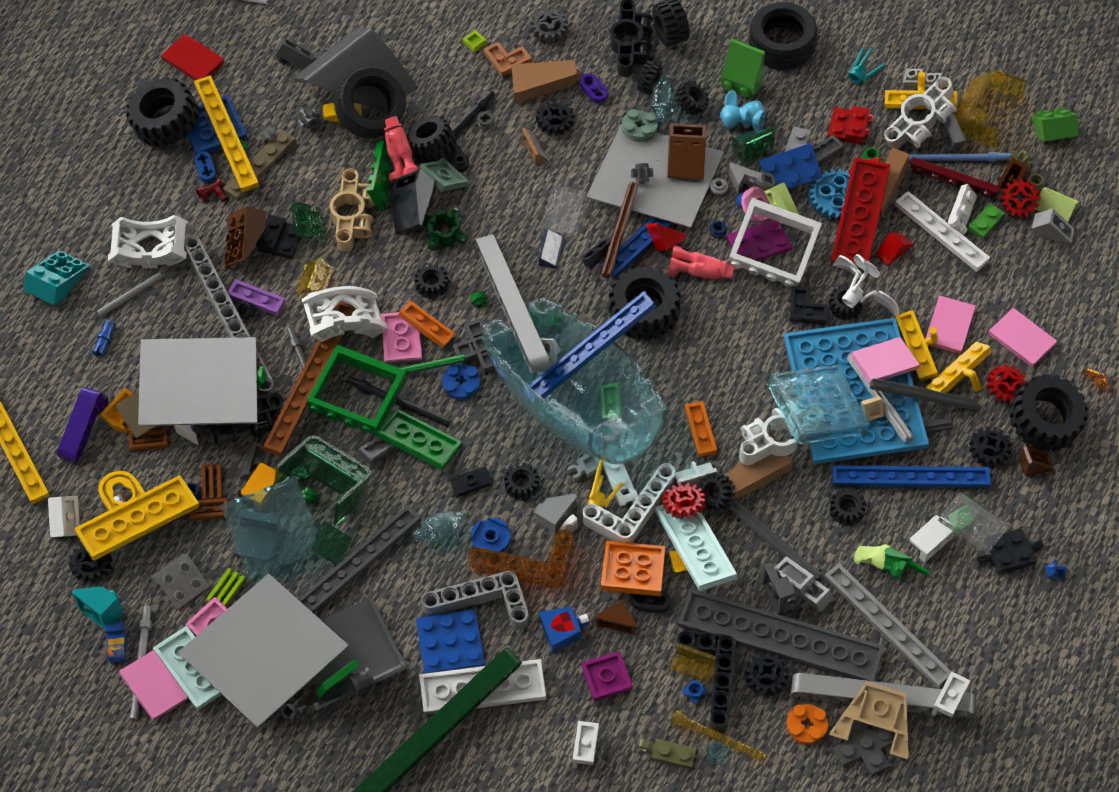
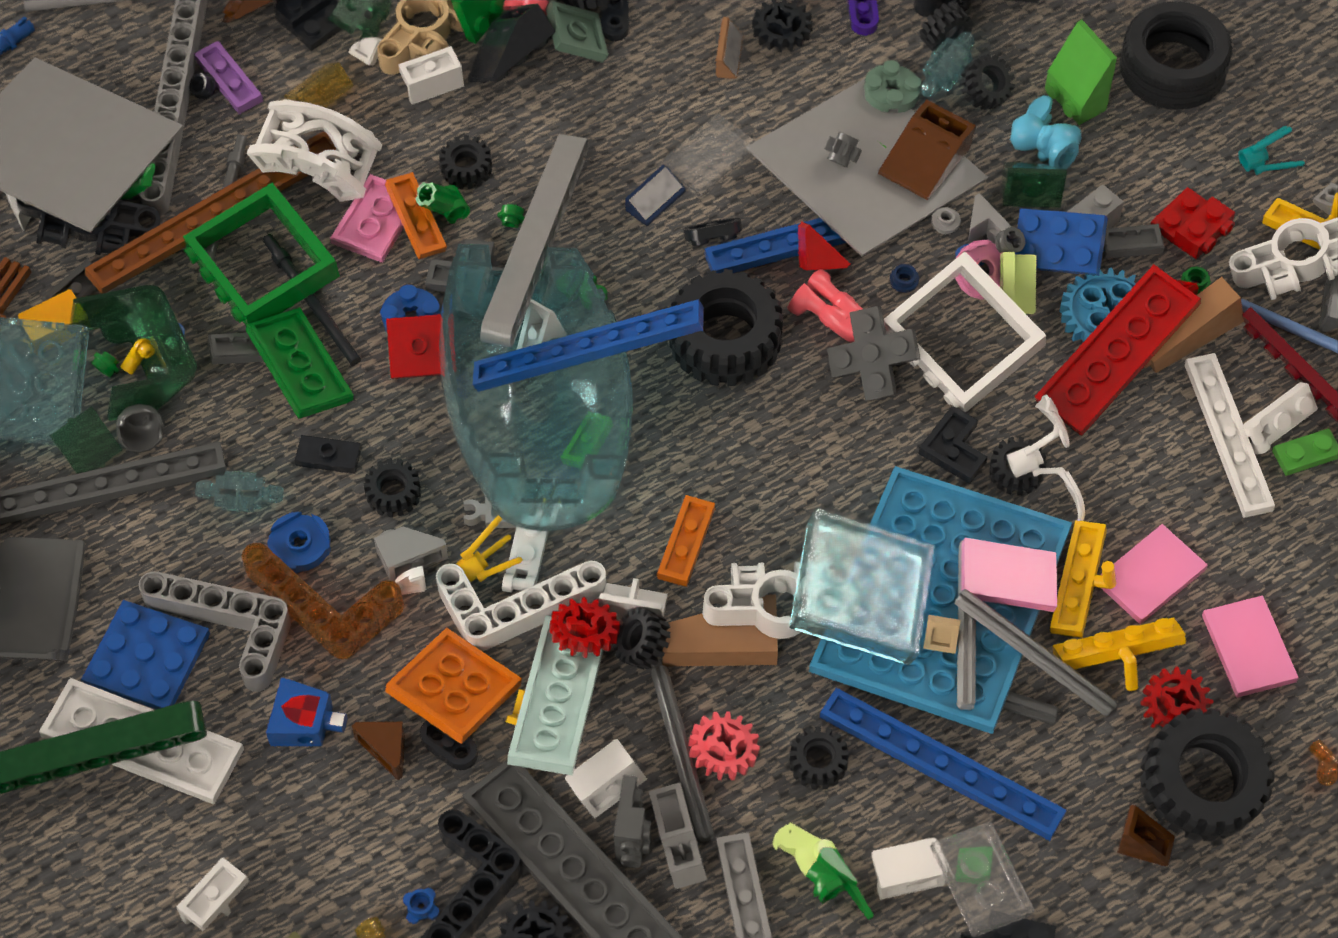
camera: 30 degrees right, 0 degrees up
(323, 480) = (141, 349): none -> yellow arm
(327, 242) = (366, 50): none -> white tile
(356, 520) = (139, 428): none -> dark grey hair
(377, 239) = (432, 75): none -> white panel
(434, 364) = (384, 272): green bar -> none
(438, 308) = (443, 200): none -> green piece
(448, 239) = (541, 115): dark green piece -> none
(481, 396) = (414, 346): none -> red plate
(606, 676) = (315, 817): magenta plate -> none
(619, 230) = (758, 212): reddish brown axle -> none
(693, 663) = (442, 864): clear yellow panel -> none
(733, 278) = (873, 353): none -> dark grey plate
(749, 573) = (601, 777): none -> white panel
(762, 241) = (955, 325): magenta plate -> none
(795, 525) = (720, 749): none -> coral gear
(893, 247) = (1141, 423): red slope -> none
(990, 446) = (1076, 784): black gear -> none

